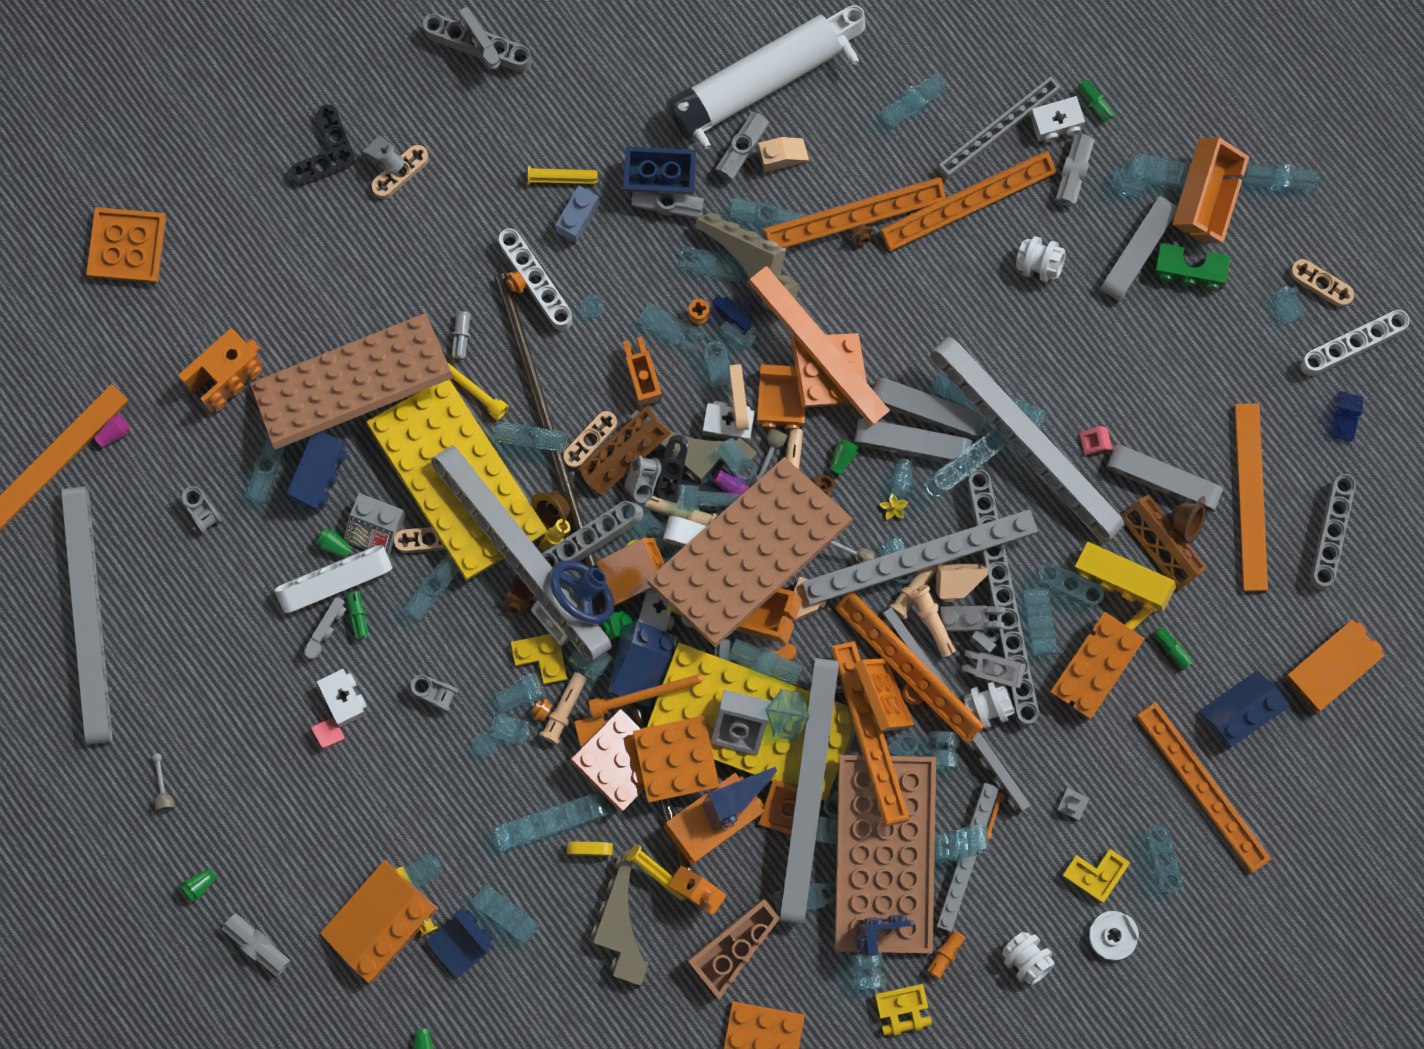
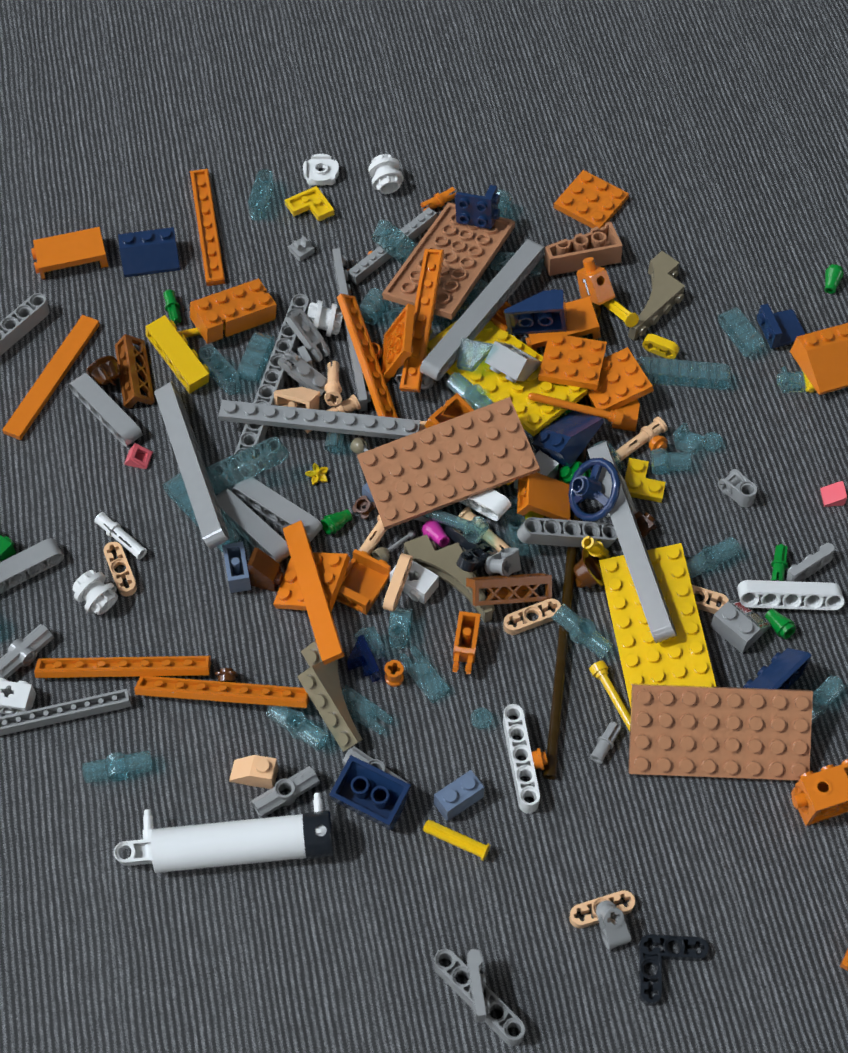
camera: 155 degrees left, 20 degrees down
(342, 711) = (813, 511): white brick -> none
(736, 461) = (423, 535): clear light blue piece -> none
(882, 358) = (264, 571): none -> reddish brown slope
(900, 1002) = (480, 180): yellow plate -> none
(902, 482) = (300, 487): clear light blue cone -> none
(913, 349) = (236, 567): none -> sand blue brick
(1018, 296) = (121, 560): none -> light nougat beam
(1053, 337) = (114, 530): none -> white pin

